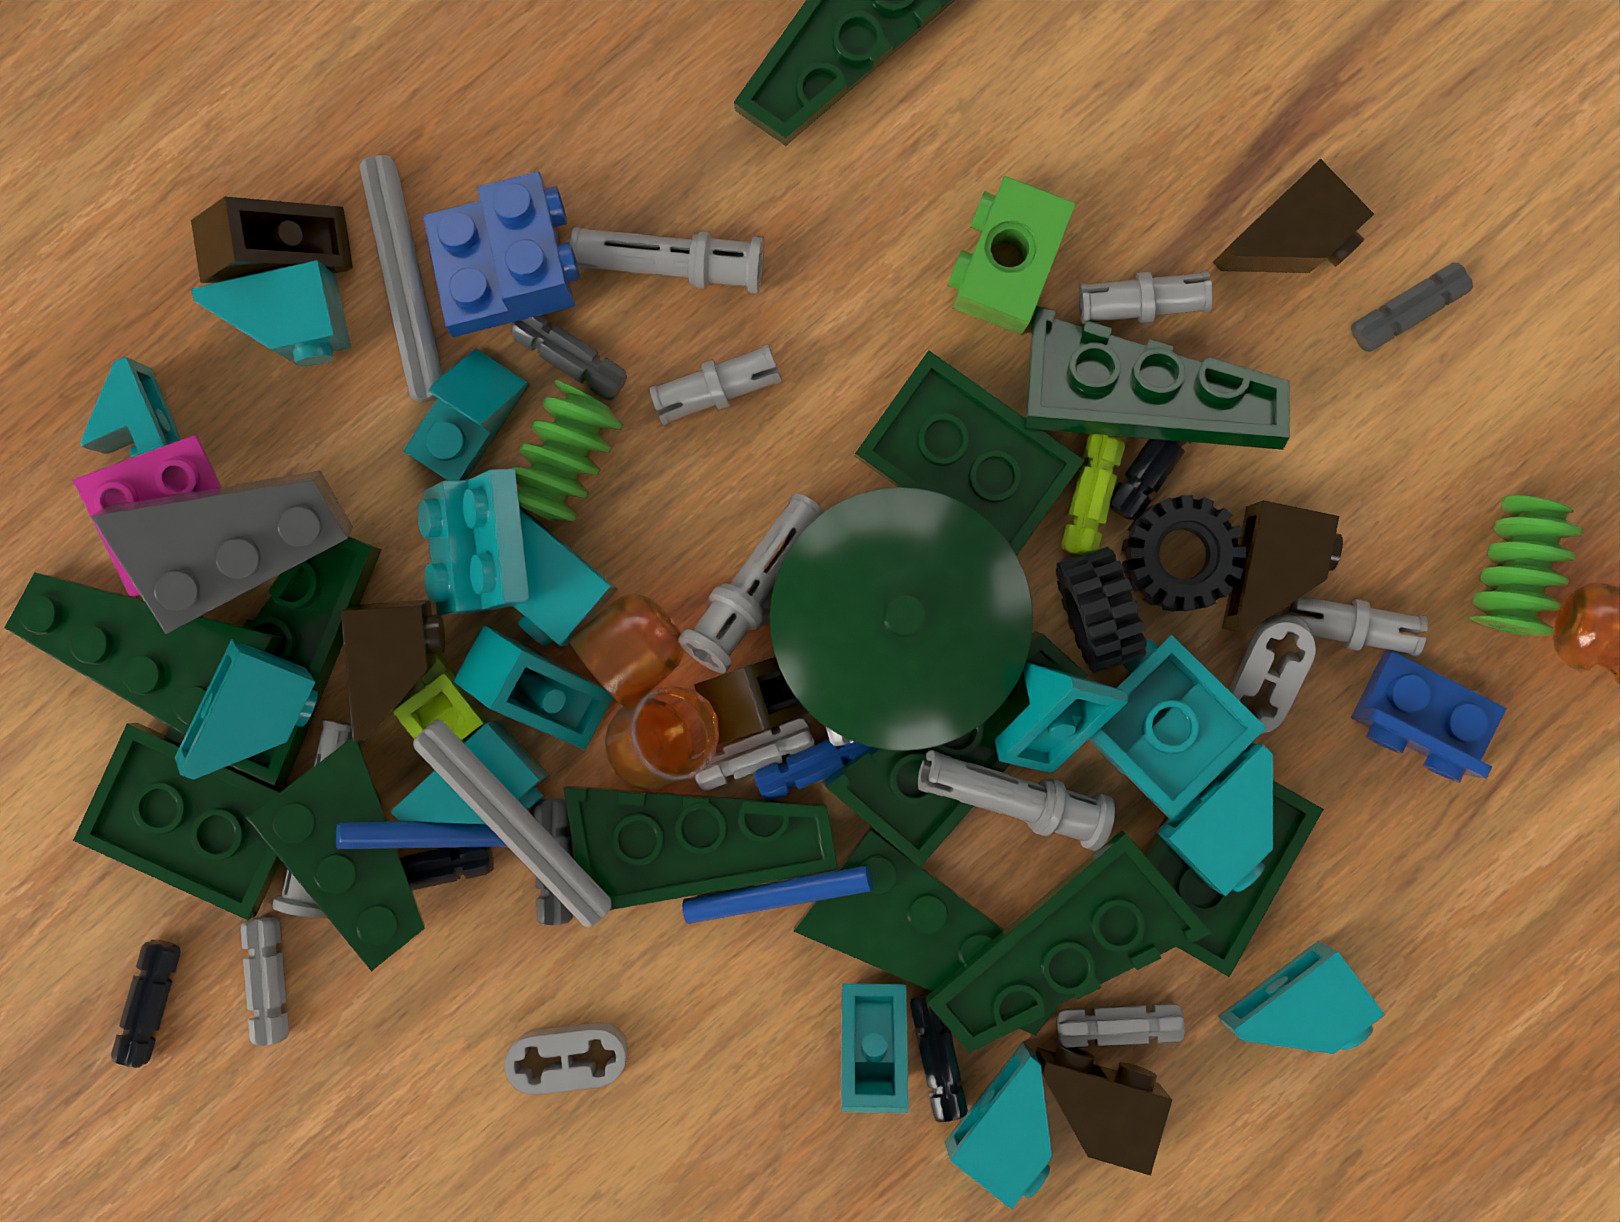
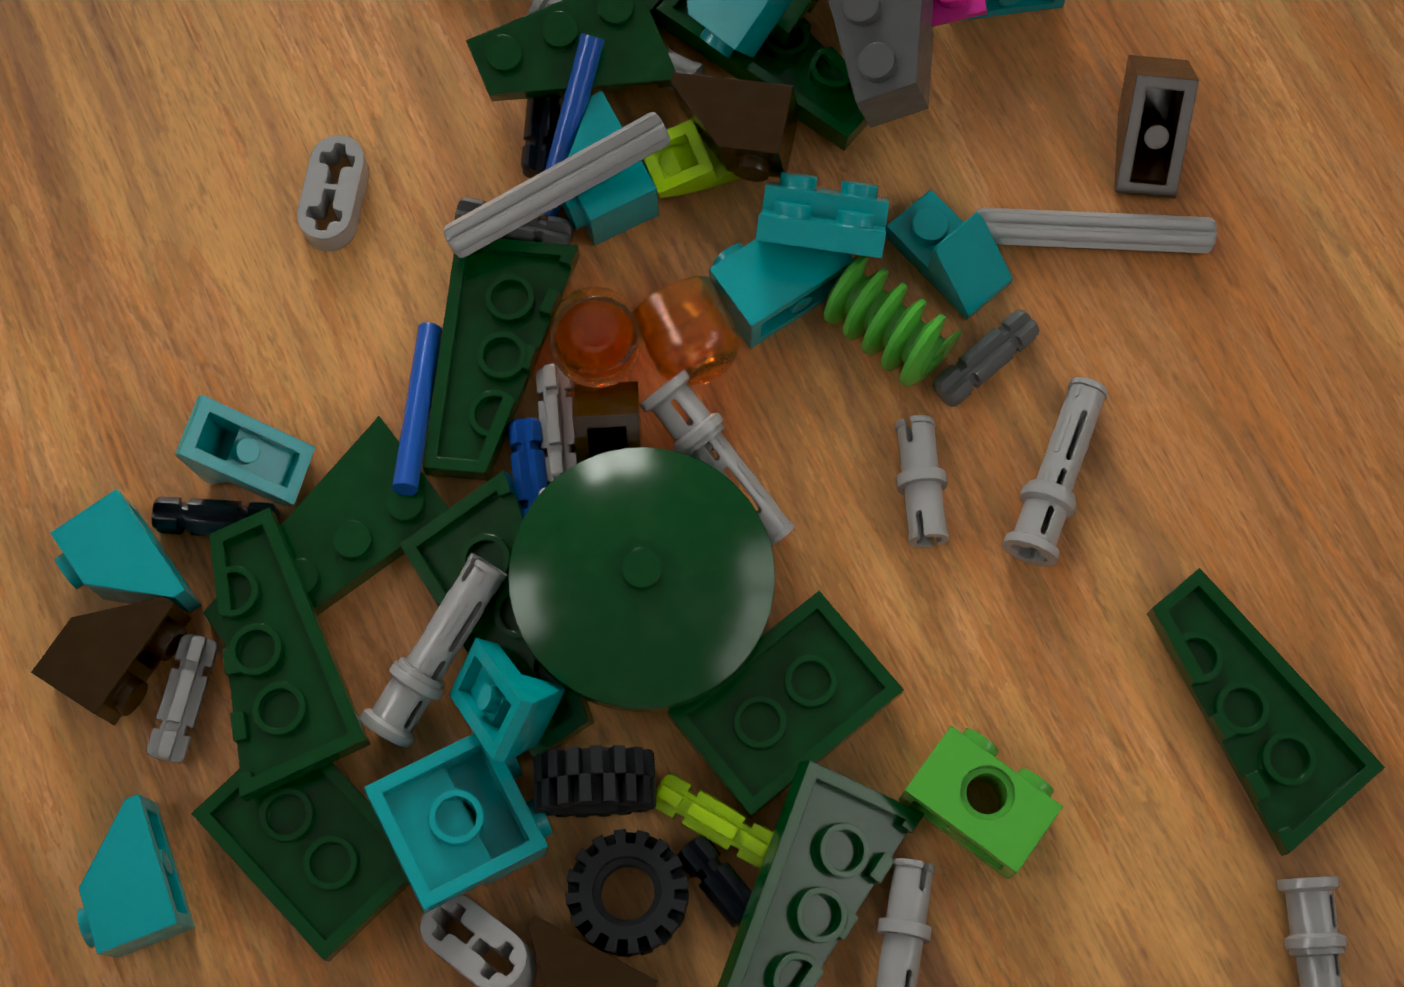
camera: 105 degrees right, 15 degrees down
(285, 309) = (1084, 120): teal slope -> none
(502, 256) = (1094, 318): blue plate -> none
(532, 688) = (678, 238): teal slope -> none
(1228, 824) = (340, 840): teal slope -> none

